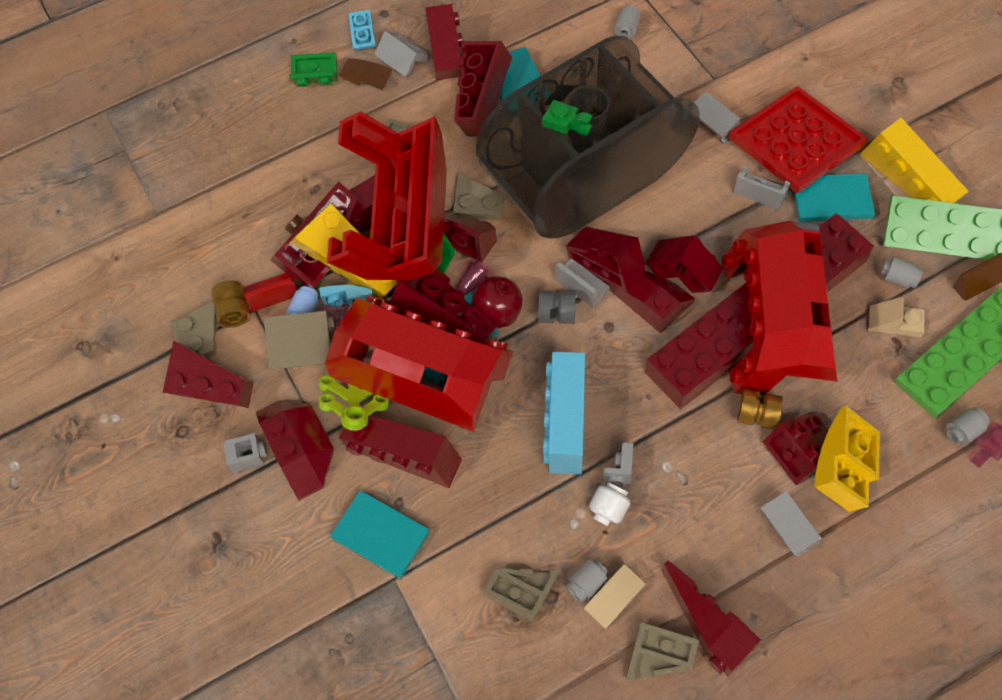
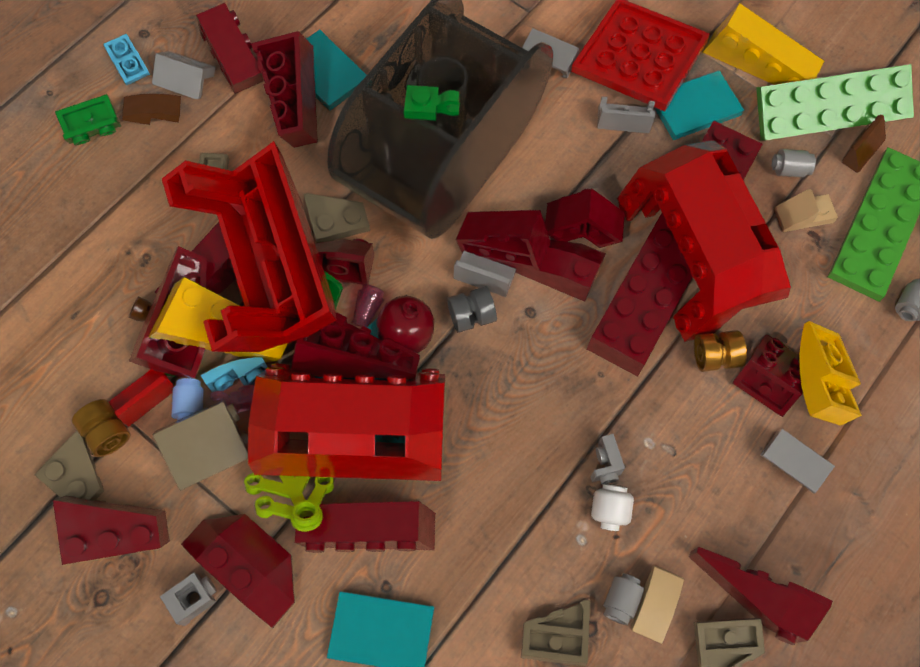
camera: 30 degrees left, 5 degrees up
(564, 413) = (532, 424): medium azure brick -> none

